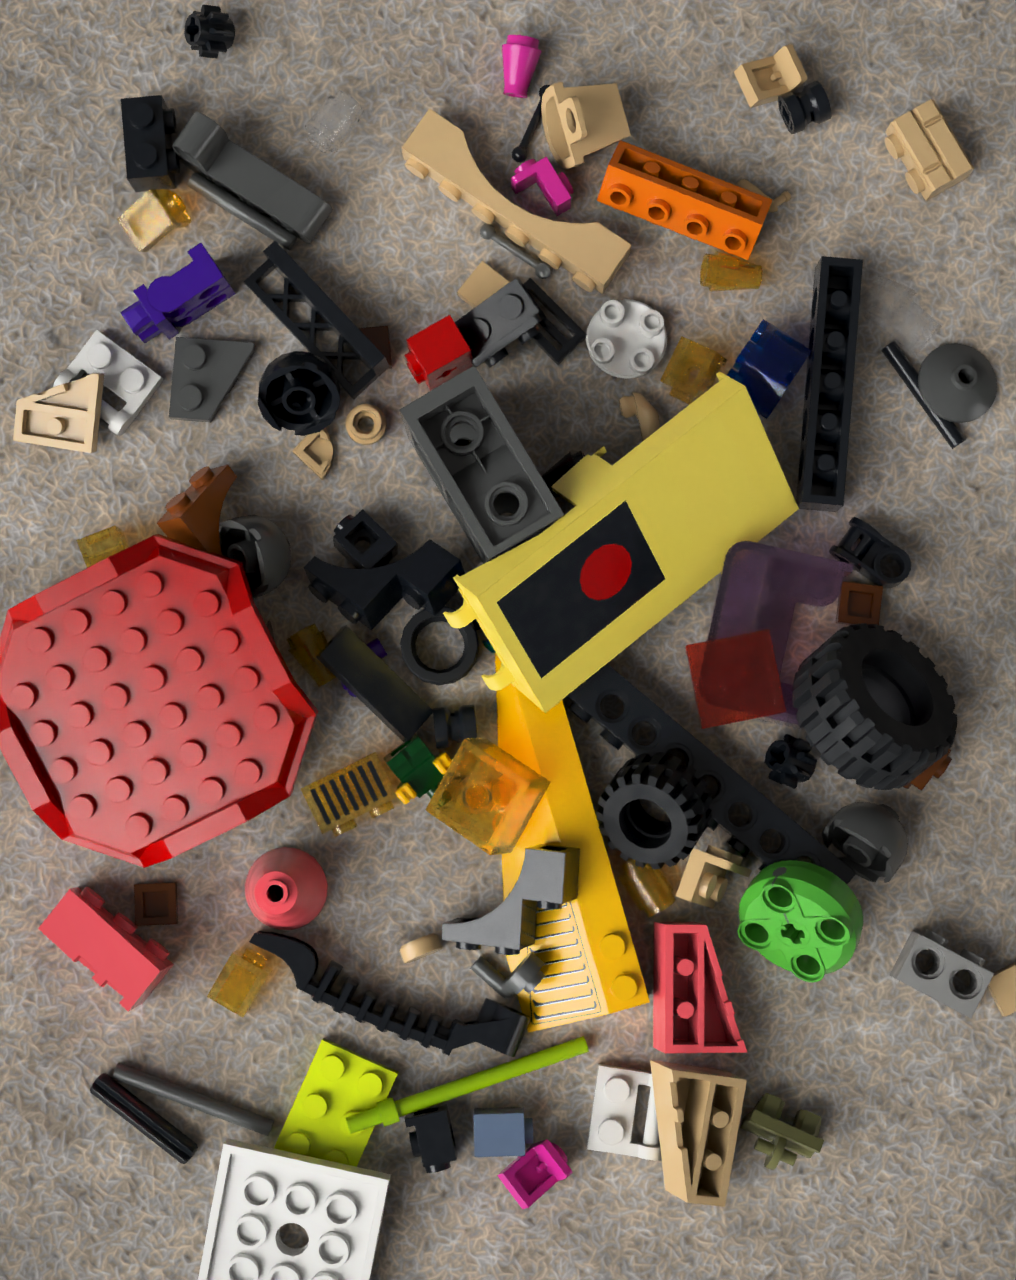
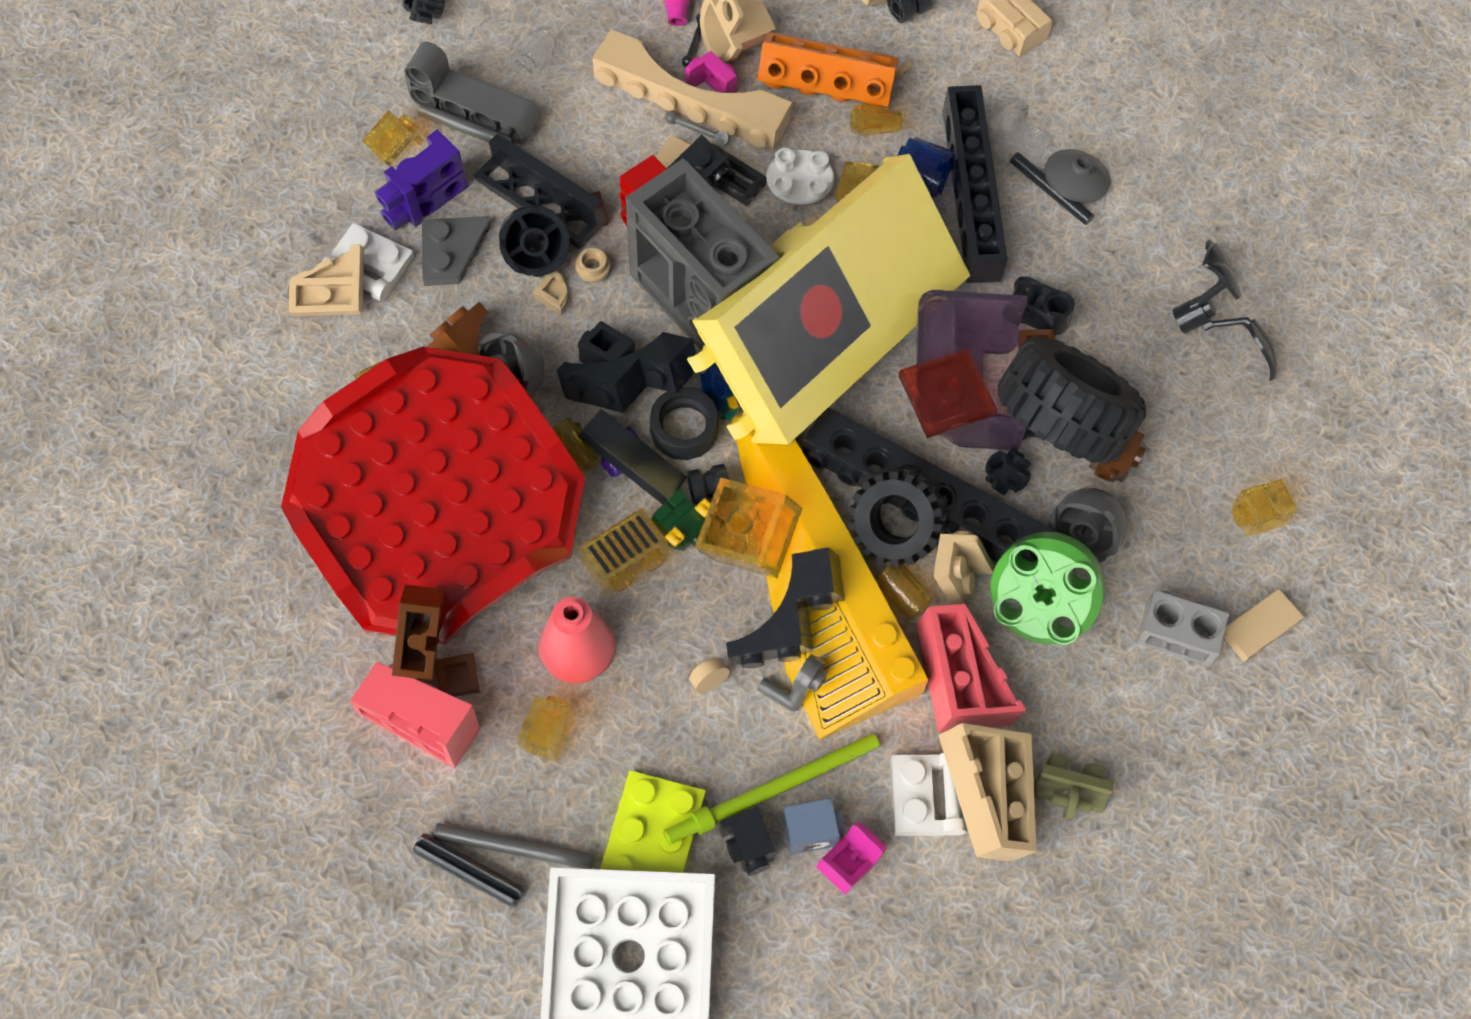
camera: 15 degrees left, 20 degrees down
(114, 873) = (417, 632): none -> reddish brown brick
(148, 143) = (381, 79): black brick -> none
(495, 1027) = (791, 734): black piece -> none

